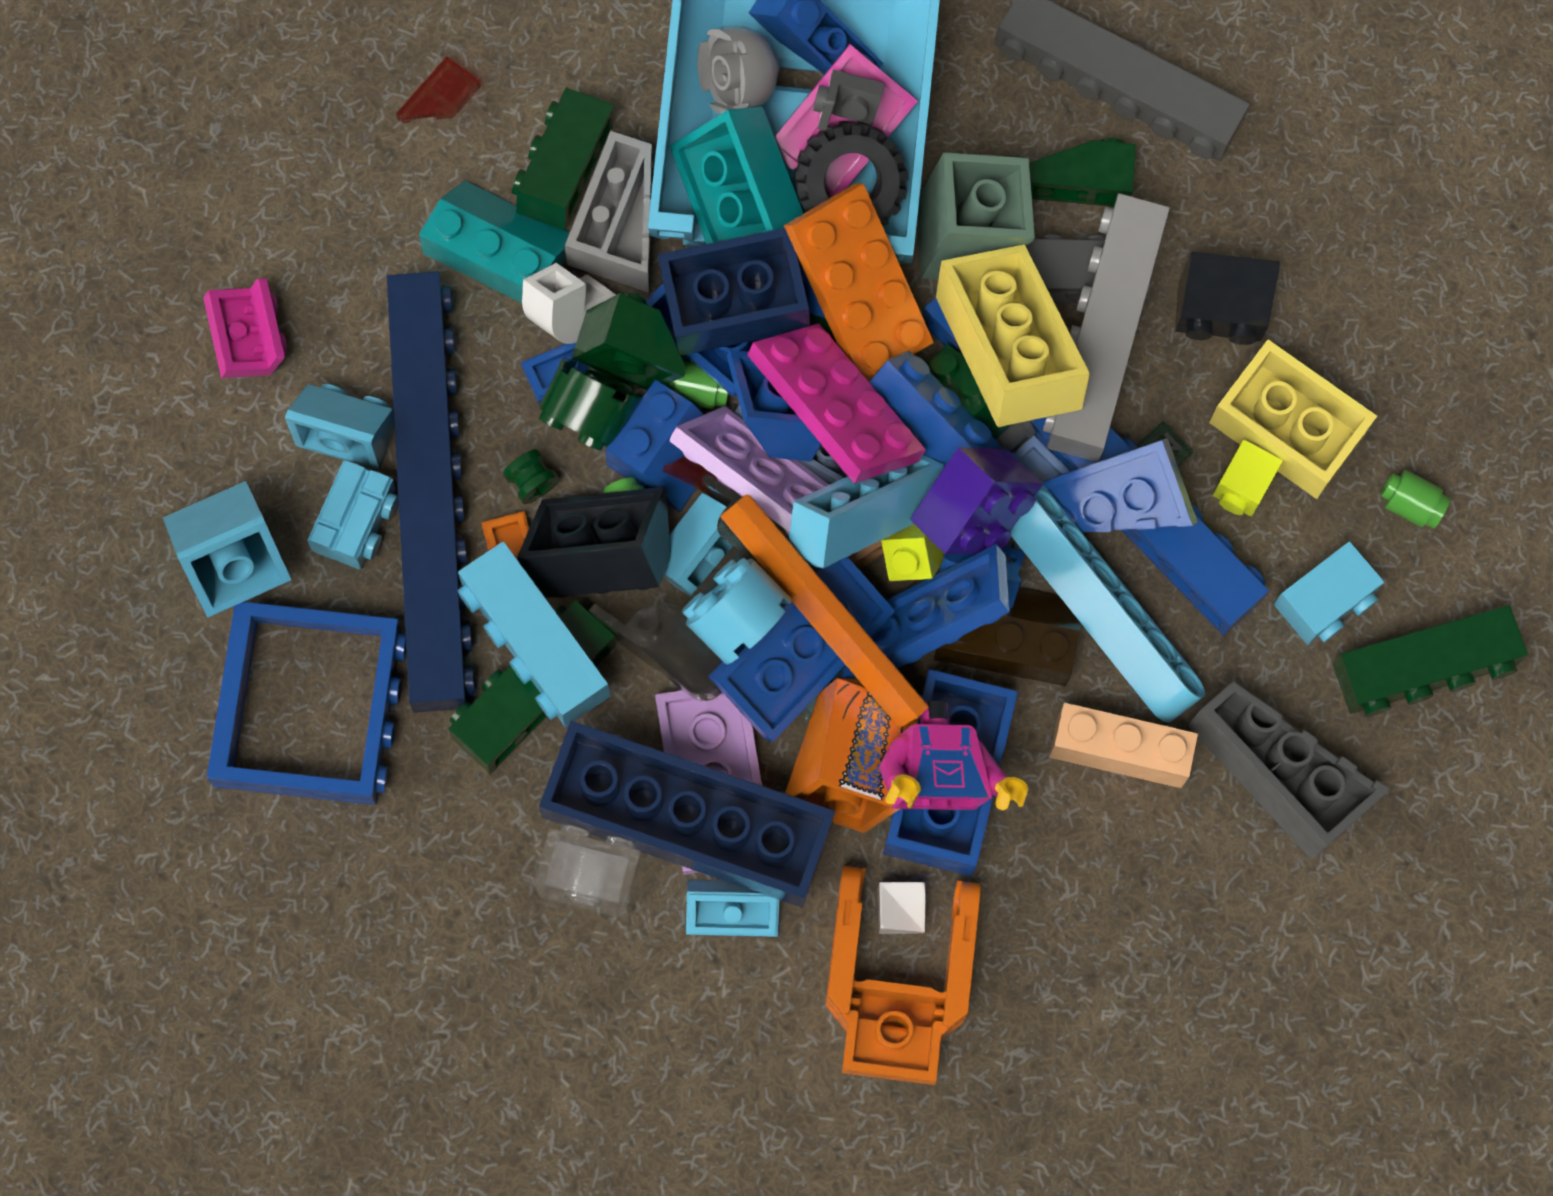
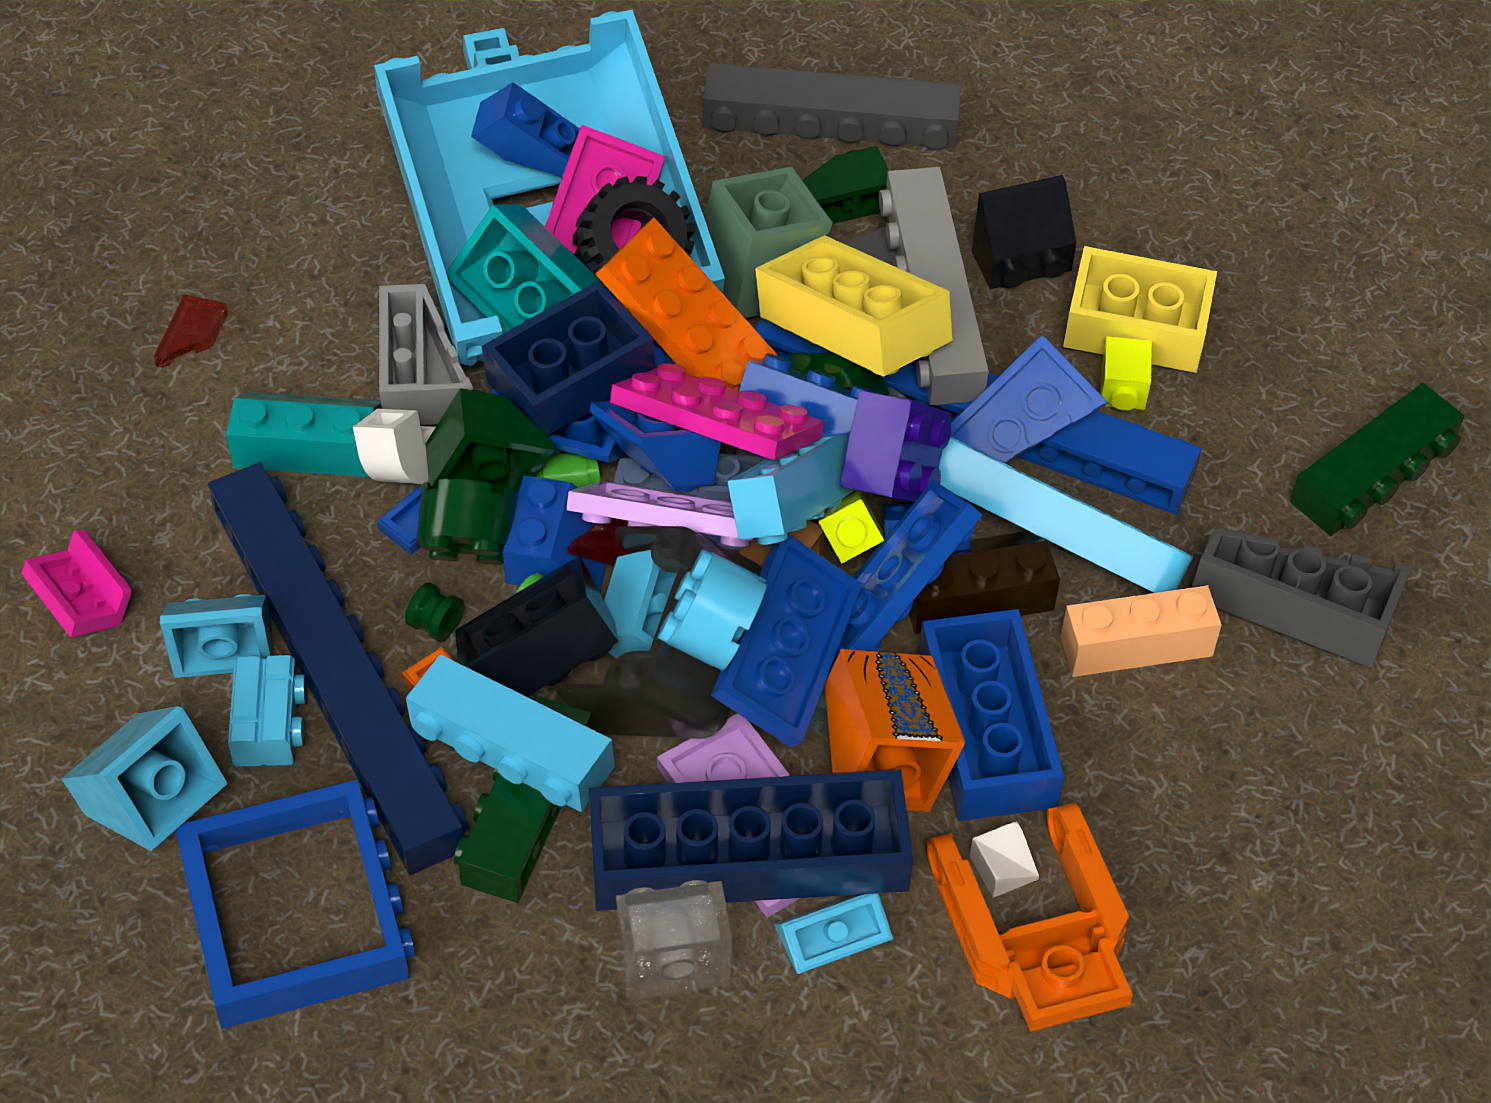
camera: 20 degrees left, 20 degrees down
(563, 158) = (339, 334): dark green brick -> none
(737, 68) = (477, 177): light grey cylinder -> none
(824, 611) = (805, 585): orange tile -> none
(848, 98) = (600, 164): dark grey bracket -> none
(945, 767) = (990, 690): torso -> none
(1329, 594) = (1255, 438): medium azure brick -> none
(1415, 499) = (1284, 338): bright green brick -> none

